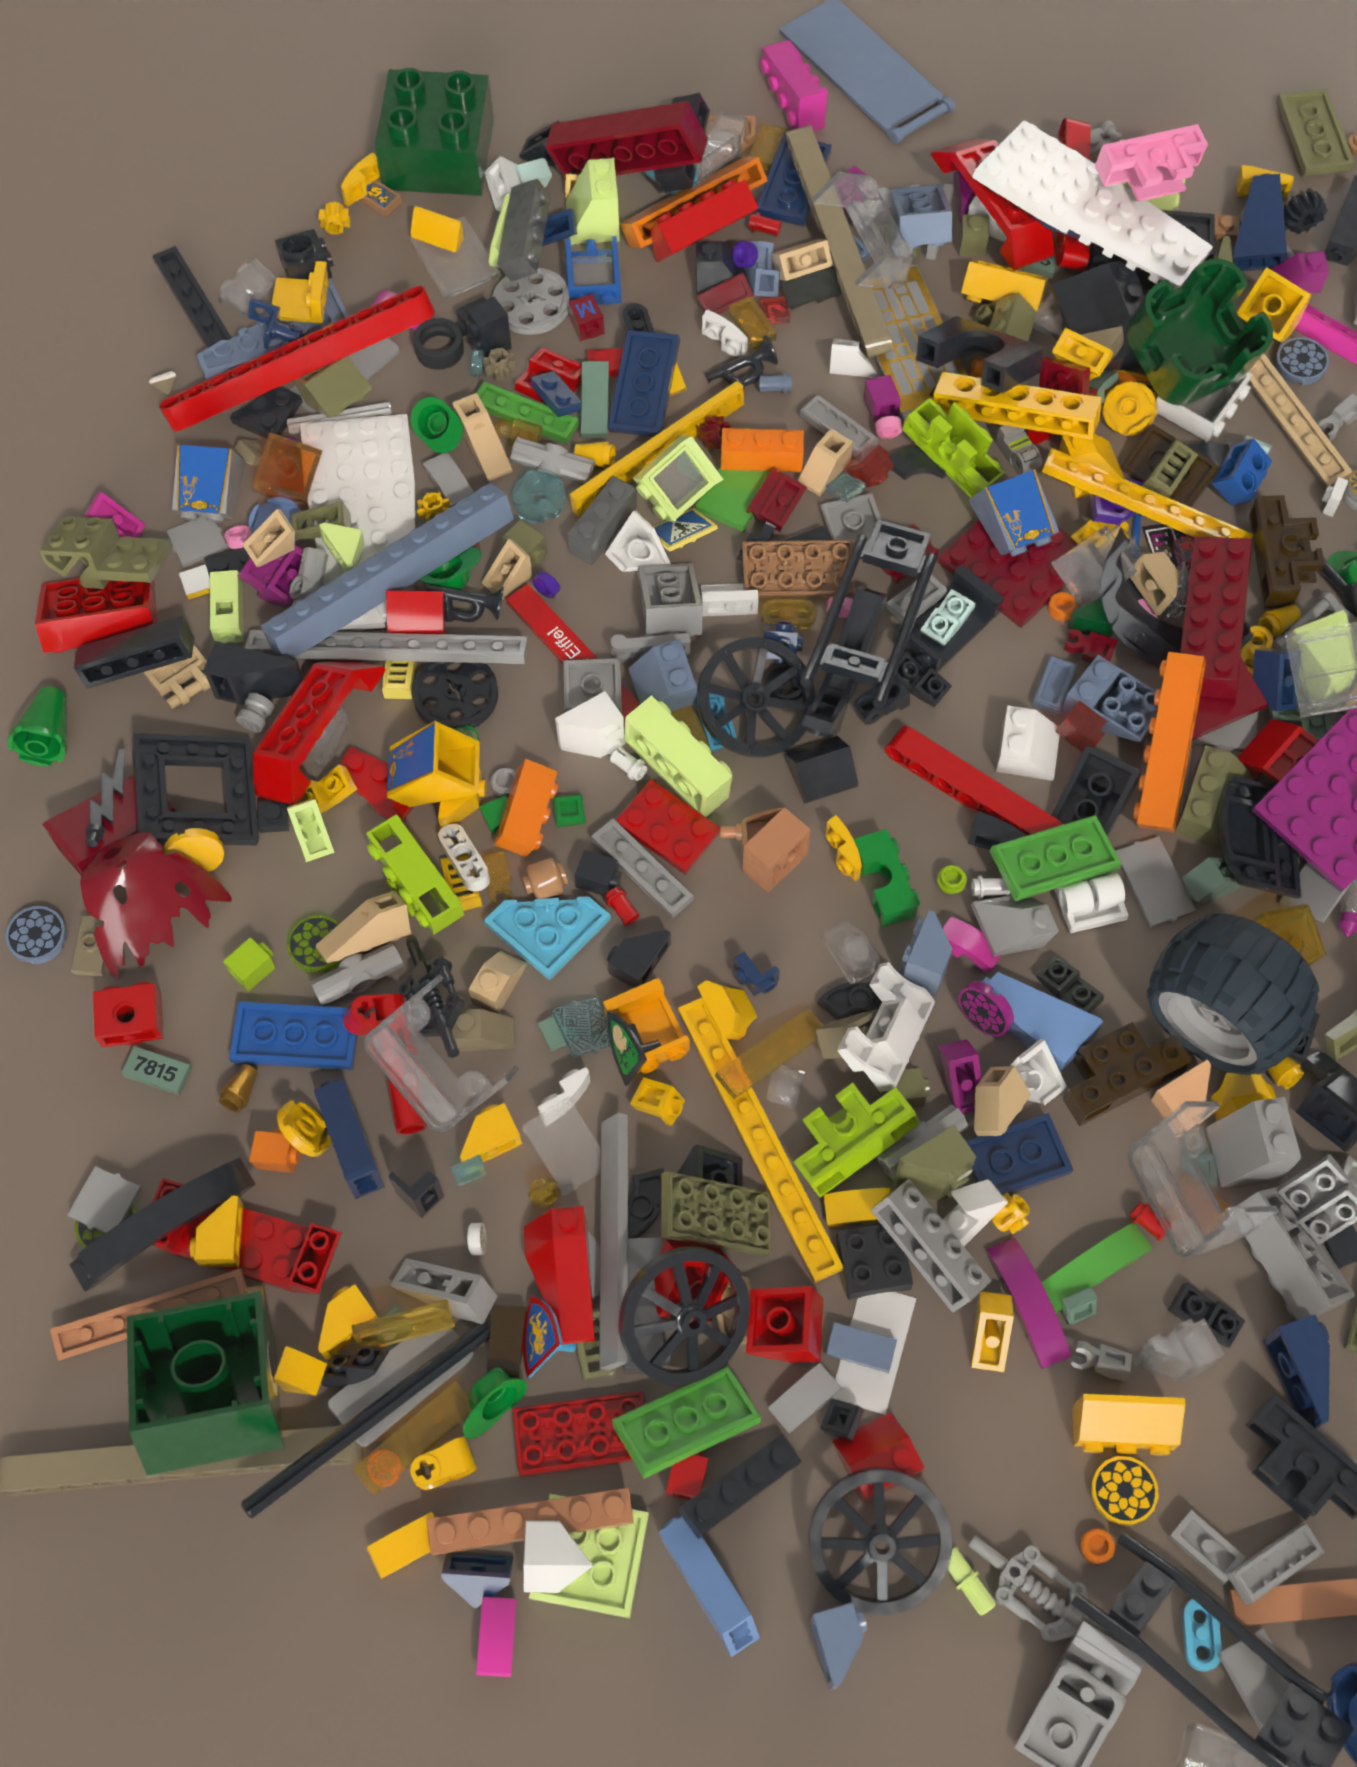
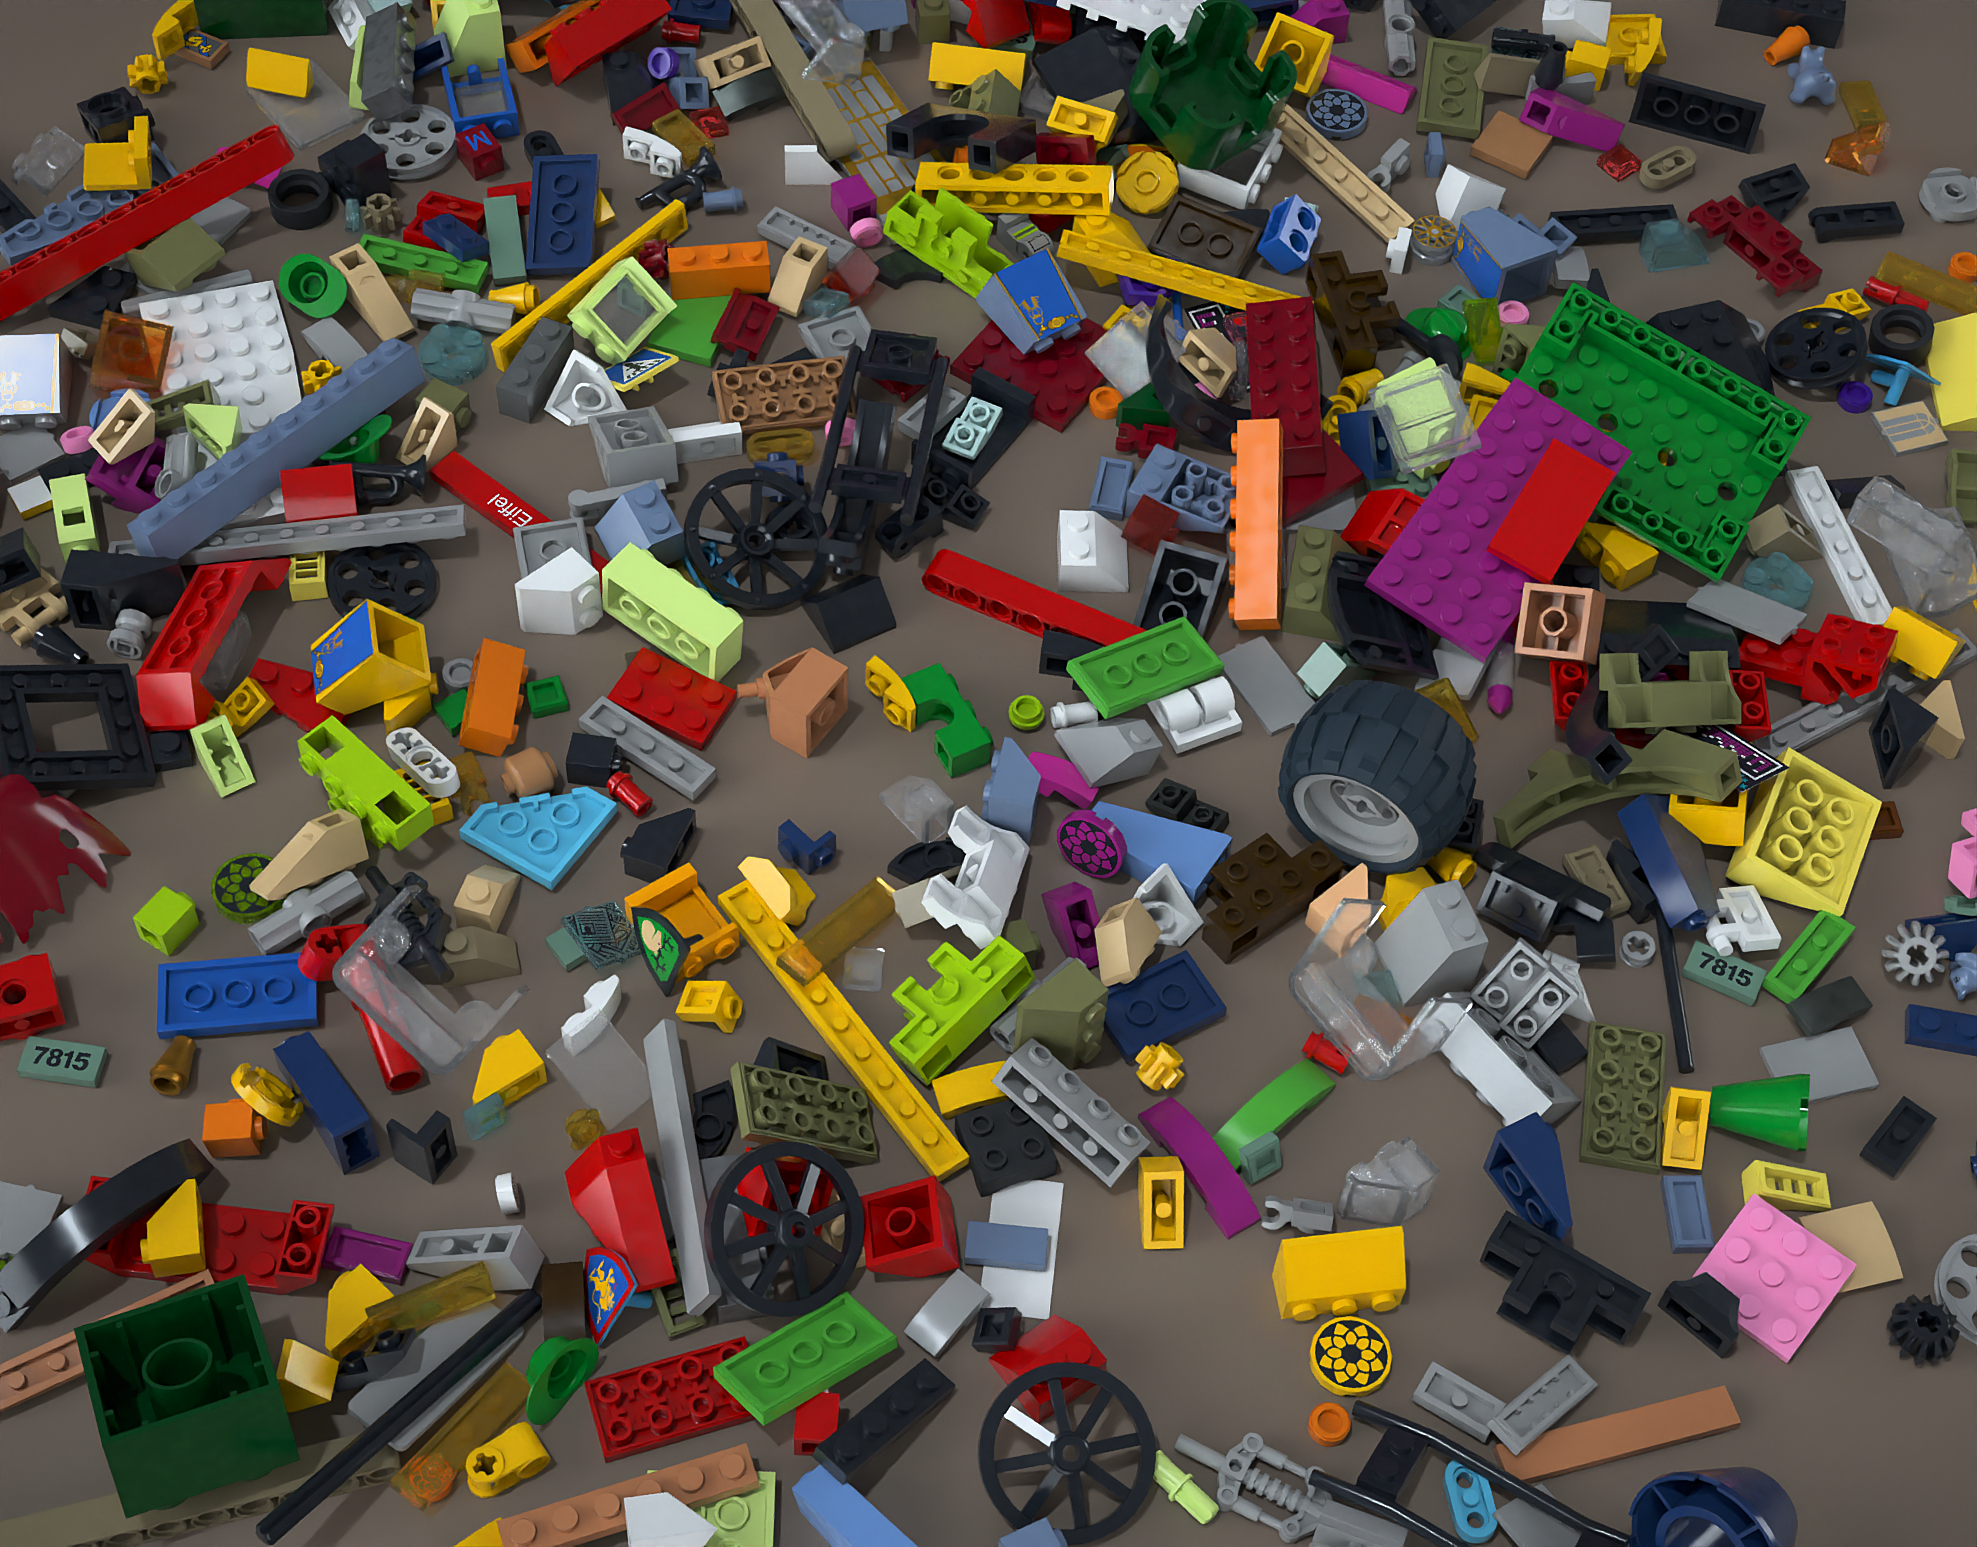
camera: 15 degrees left, 10 degrees down
(198, 715) = (57, 646): none -> black cone
(199, 846) = (83, 787): yellow tile -> none
(275, 327) = (88, 191): dark blue bracket -> none
(363, 1271) = (378, 1254): none -> magenta tile
(546, 584) = (477, 448): dark purple tile -> none
(634, 768) = (618, 637): white pin -> none
(975, 1208) = (1119, 1064): white slope -> none
(1159, 482) = (1197, 256): olive slope -> none
(1194, 1305) = (1435, 1146): black slope -> none

